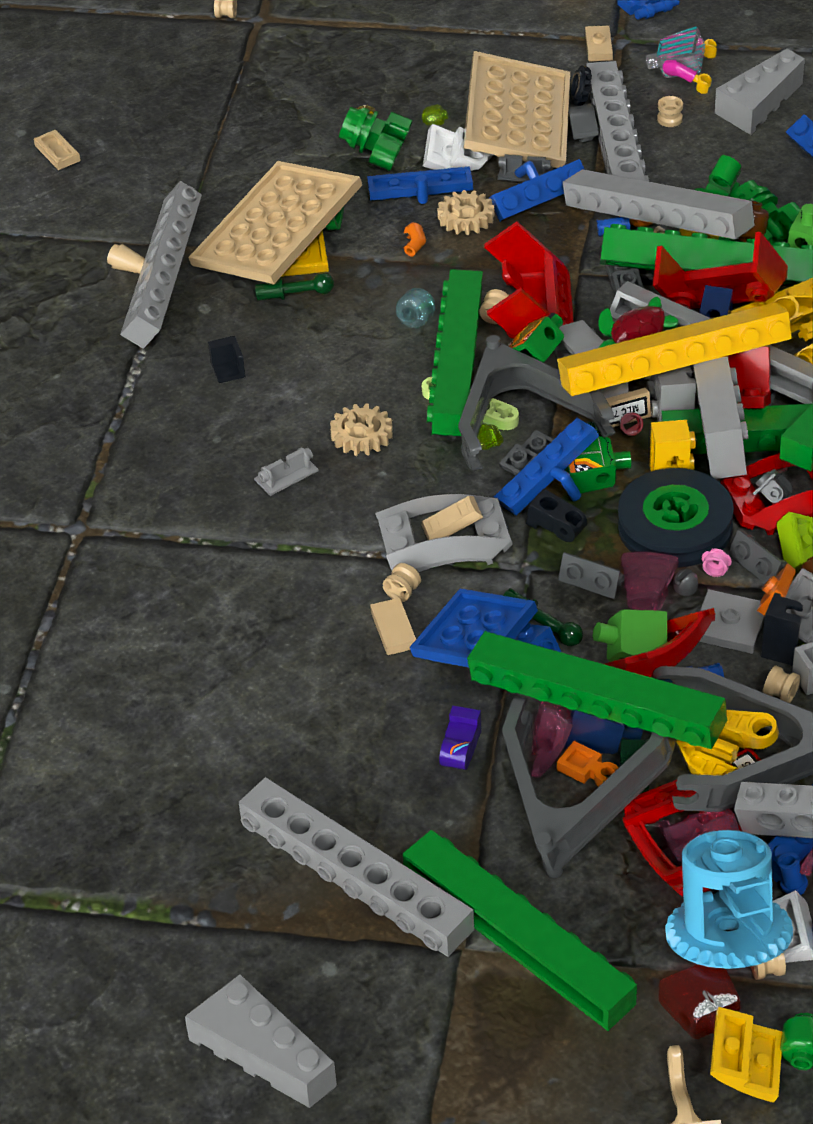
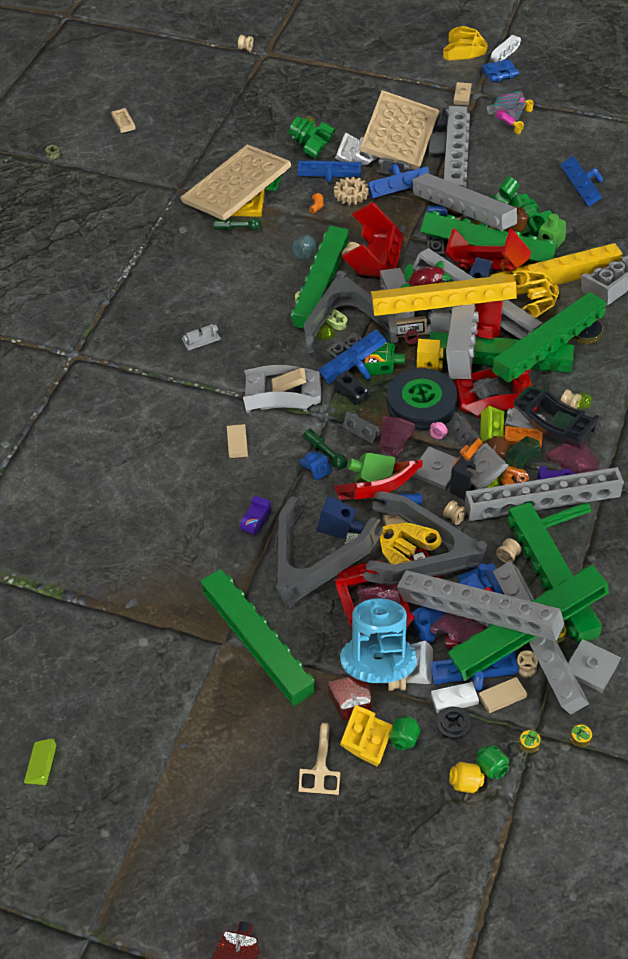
camera: 10 degrees right, 5 degrees up
(125, 259) = (143, 193): tan cone -> none
(161, 265) = (162, 200): light grey brick -> none
(226, 359) = (185, 263): black panel -> none
(257, 1036) = (87, 675): light grey wedge -> none
(357, 867) = (162, 572): light grey brick -> none
(361, 429) = (251, 317): tan gear -> none
(401, 582) = (248, 415): tan wheel -> none
(434, 115) = (351, 127): clear neon green piece -> none
(465, 619) = (281, 450): blue plate -> none
(539, 337) = (369, 276): green torso -> none
(550, 735) = (308, 521): clear pink slope -> none
(584, 763) = (323, 542): orange plate -> none
(598, 689) = (336, 500): green brick -> none
(670, 111) = (492, 142): tan wheel -> none
(688, 583) = (417, 440): dark grey hinge -> none
(759, 90) = (551, 136): light grey wedge -> none

